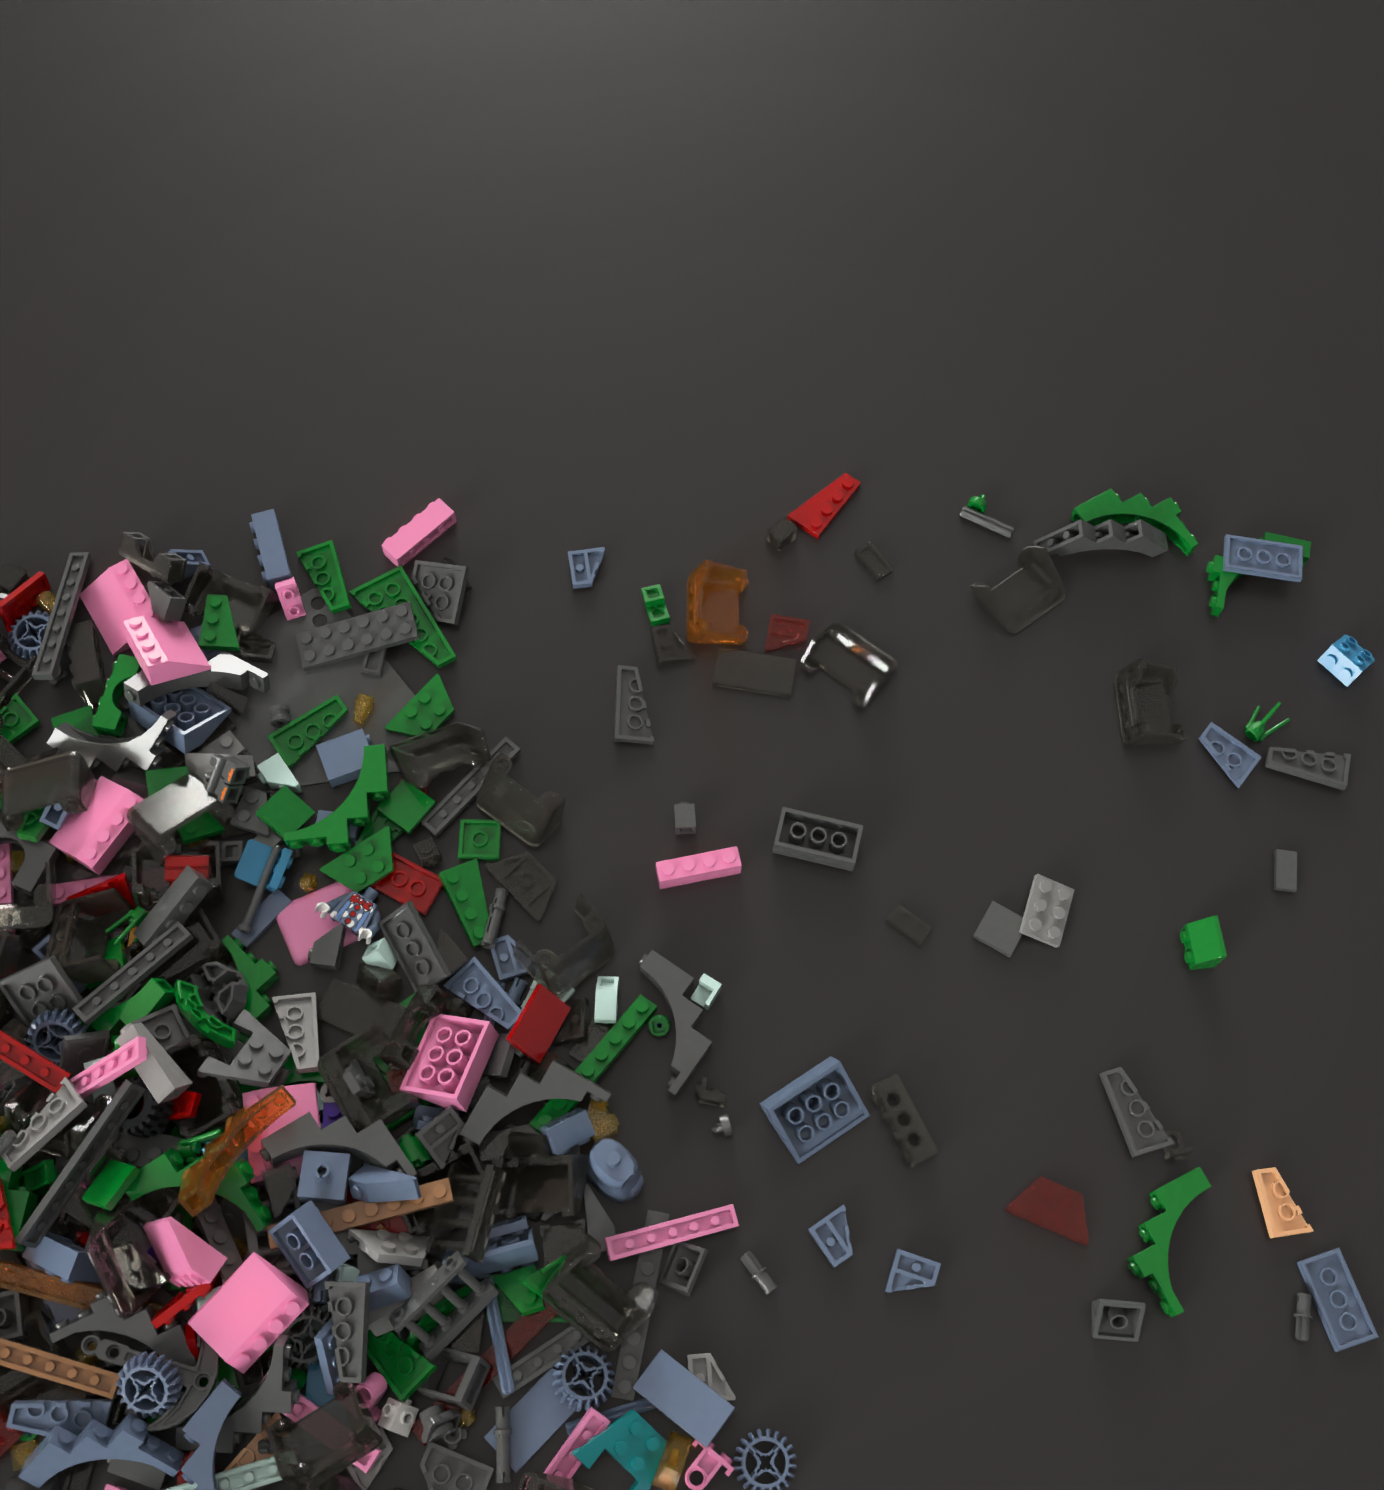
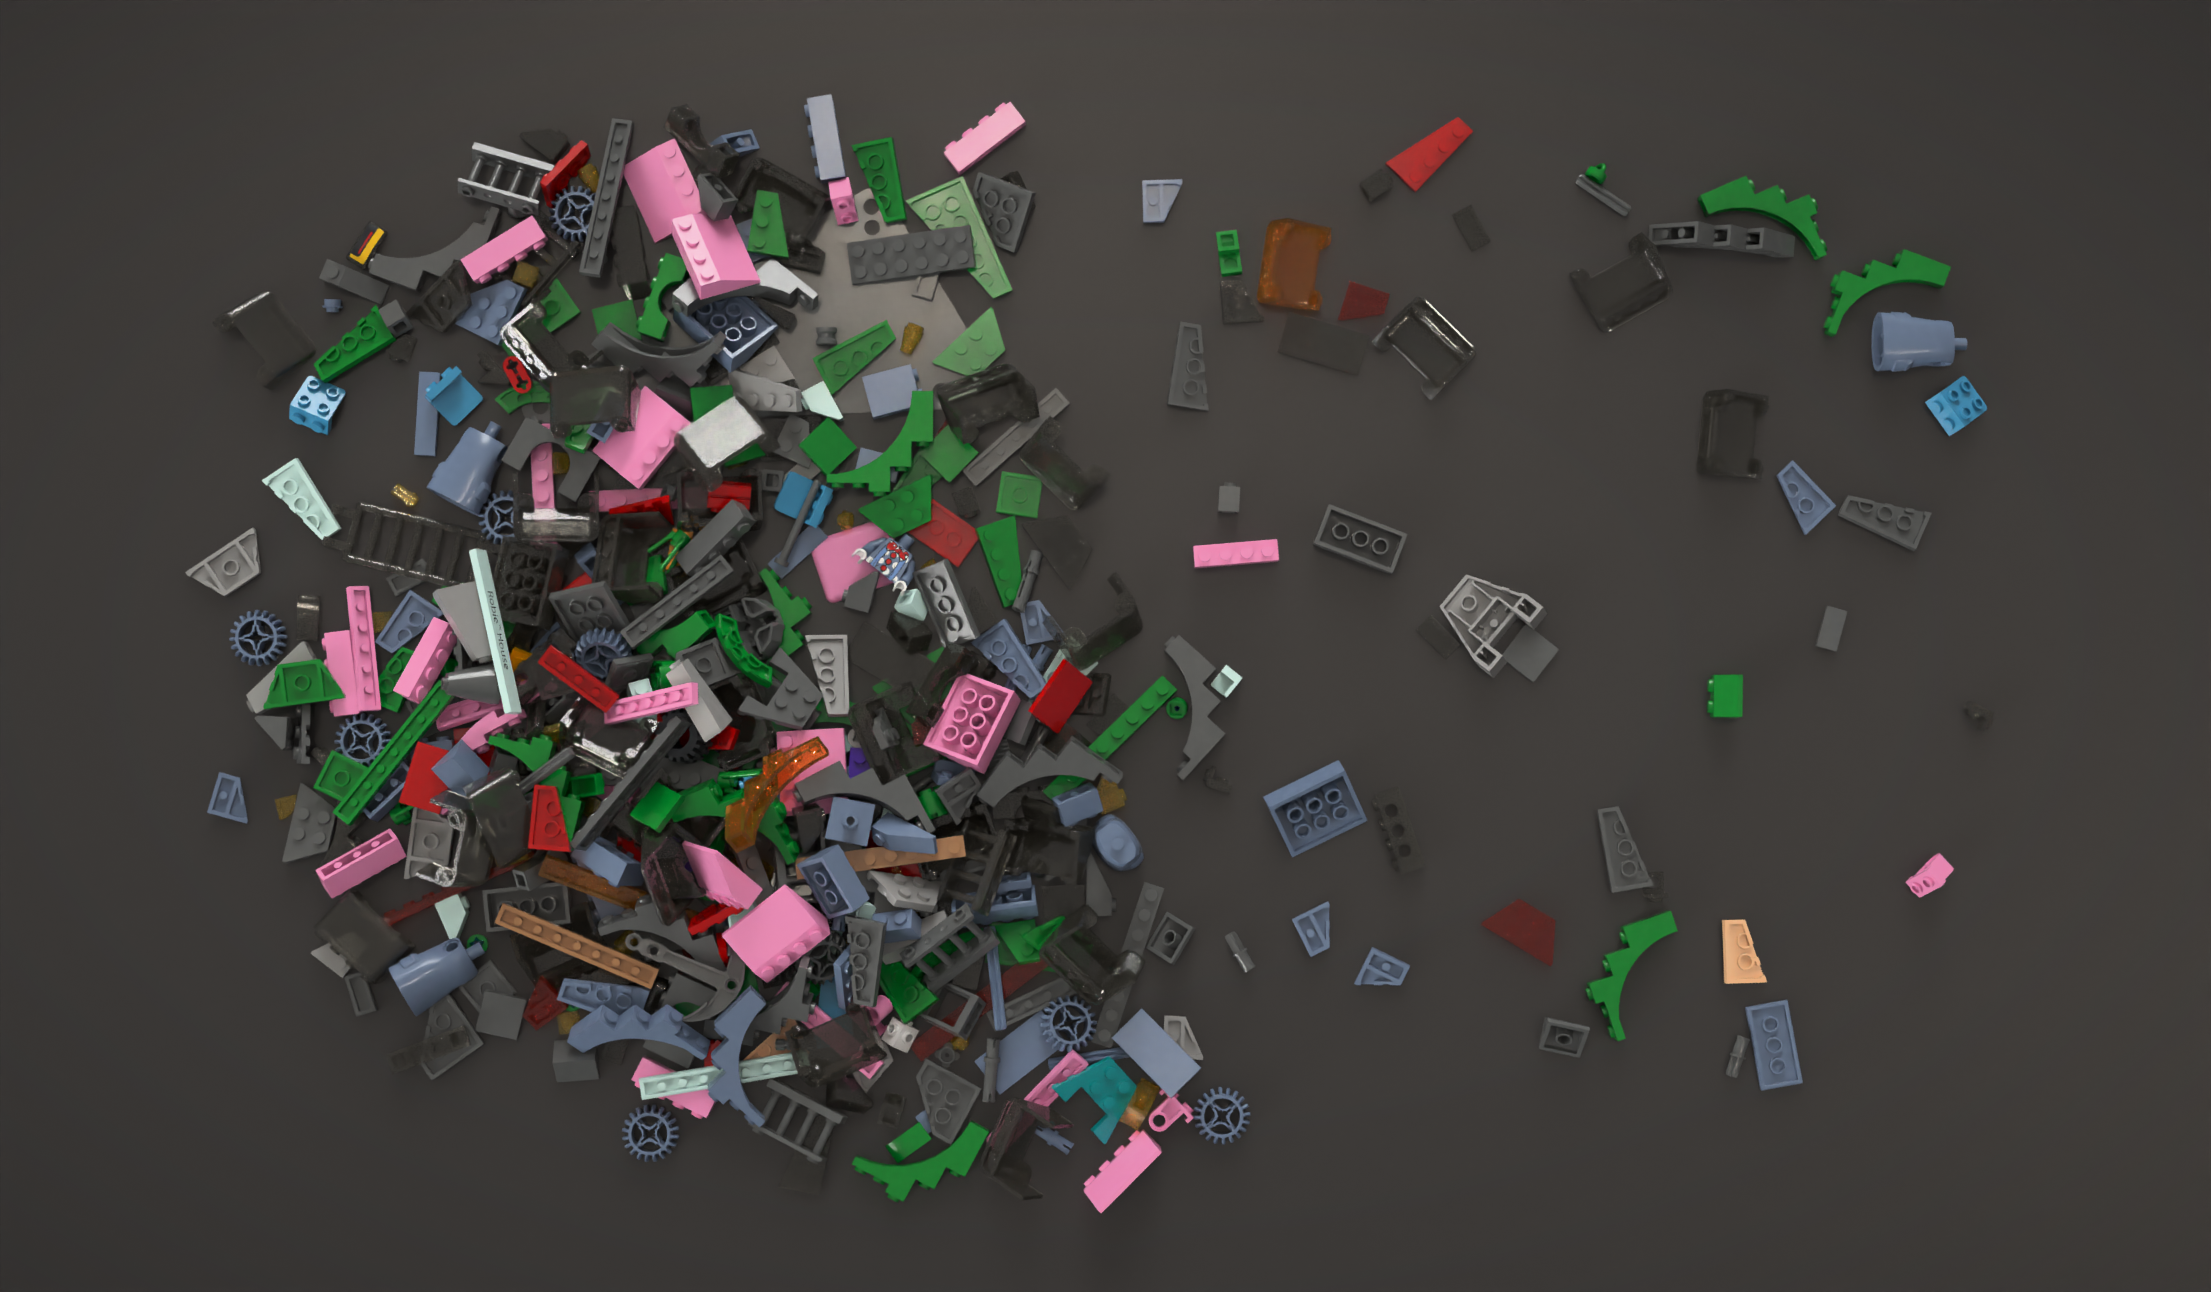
camera: 15 degrees right, 20 degrees up
(45, 1125) = (607, 735): light grey wing -> none
(138, 1374) = (684, 976): sand blue gear -> none
(226, 778) = (774, 412): dark grey hips -> none
(437, 1422) = (935, 1045): dark grey piece -> none
(606, 999) = (1128, 676): light aqua slope -> none
(671, 1232) = (1164, 907): bright pink plate -> none
(723, 1125) = (1227, 812): flat silver tile -> none
(950, 897) = (1484, 614): none -> light grey wedge
(1046, 910) = (1578, 641): light grey plate -> none
(1256, 730) = (1838, 474): green plant -> none
(1263, 558) = (1892, 281): sand blue tile -> none
(1292, 607) = (1912, 342): none -> sand blue torso

